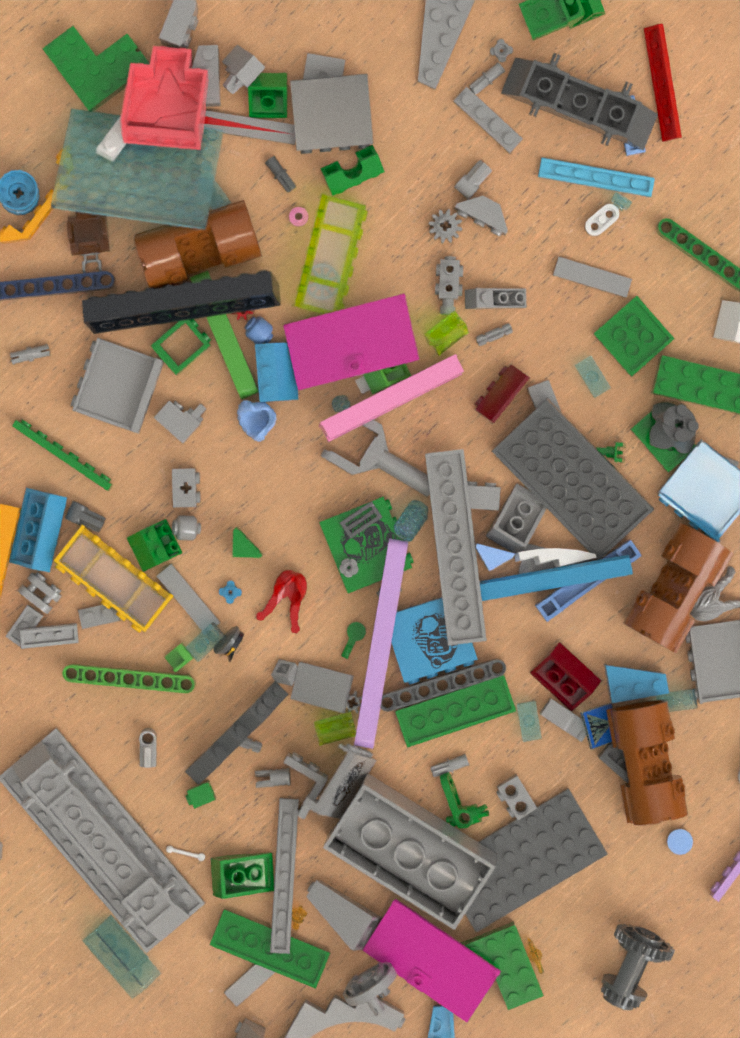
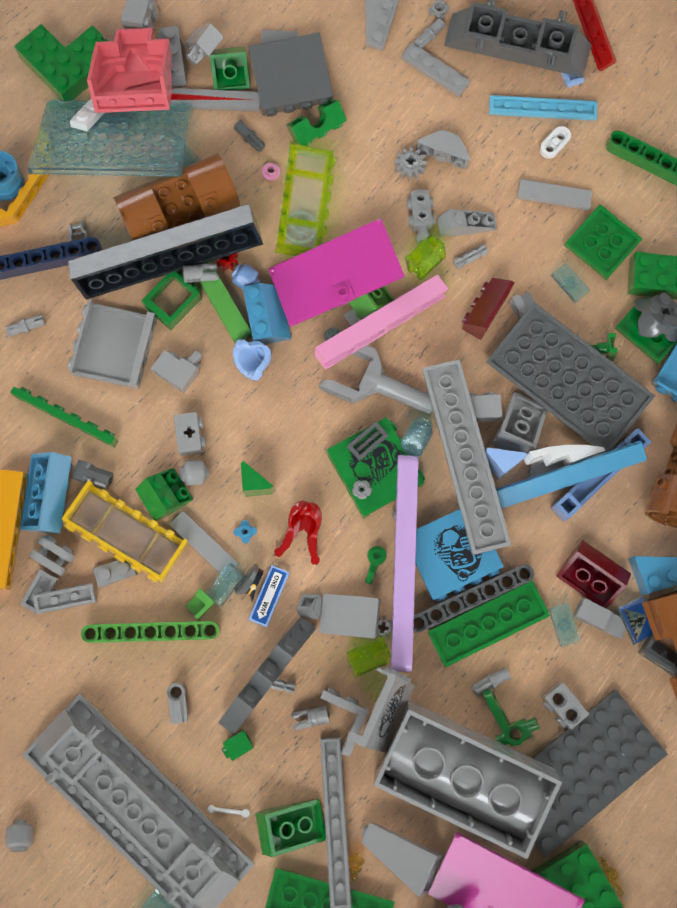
camera: 15 degrees left, 10 degrees down
(88, 233) = (71, 206): reddish brown panel -> none
(209, 325) = (200, 273): none -> light grey hinge
(246, 657) = (269, 596): none -> tile
(470, 183) = (428, 123): light grey piece -> none
(620, 201) = (571, 122): clear light blue plate -> none

